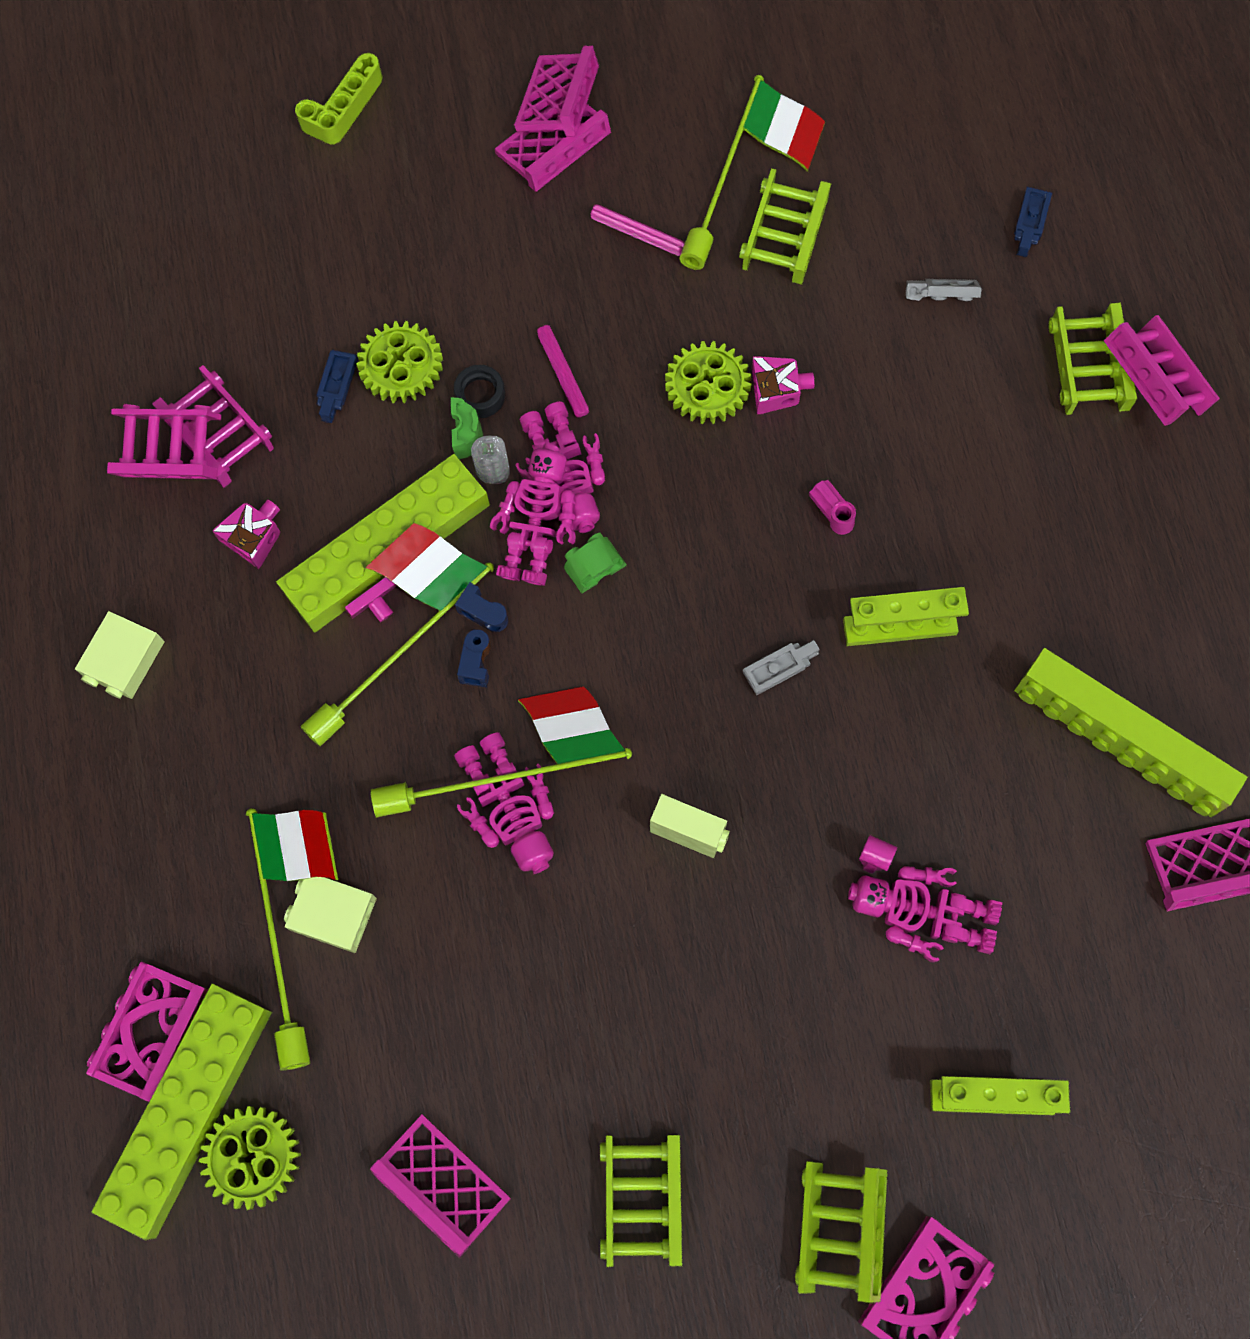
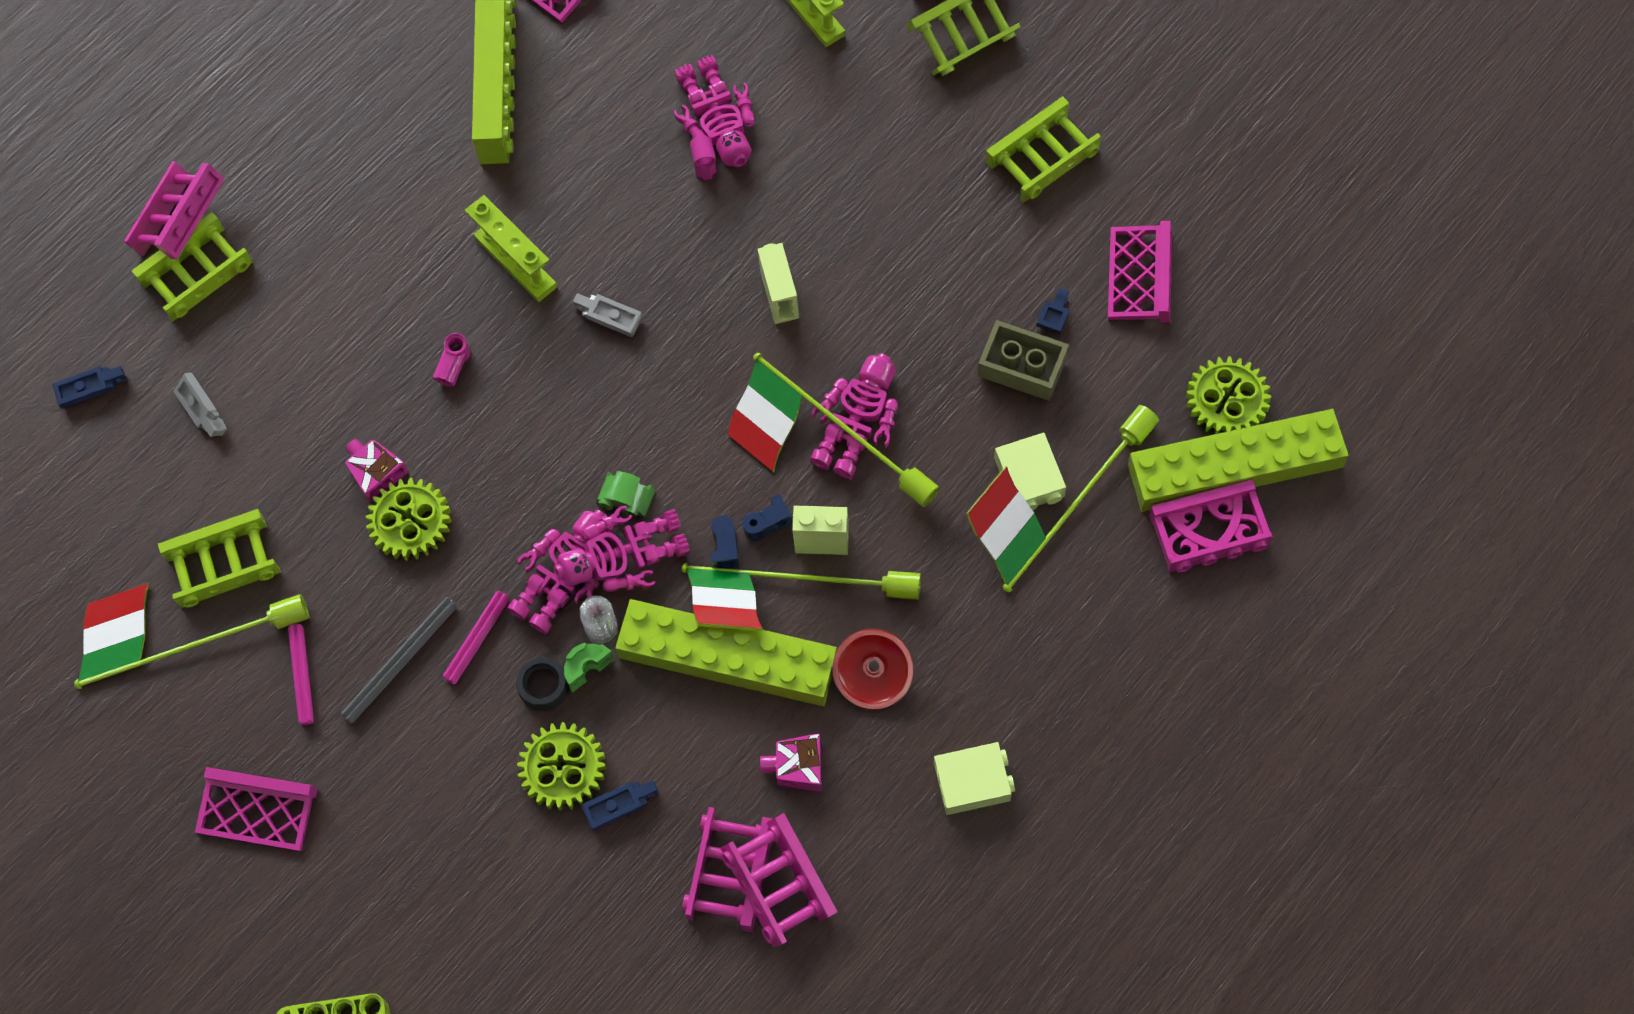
camera: 125 degrees left, 5 degrees down
(269, 641) = (869, 686): none -> red dish
(373, 599) = (781, 623): dark pink tile -> none
(418, 684) = (820, 530): none -> yellowish green brick
(435, 991) = (1023, 360): none -> olive brick
(462, 1062) = (1054, 314): none -> dark blue plate
(575, 92) = (203, 807): dark pink fence -> none
(591, 306) = (398, 660): none -> dark grey axle

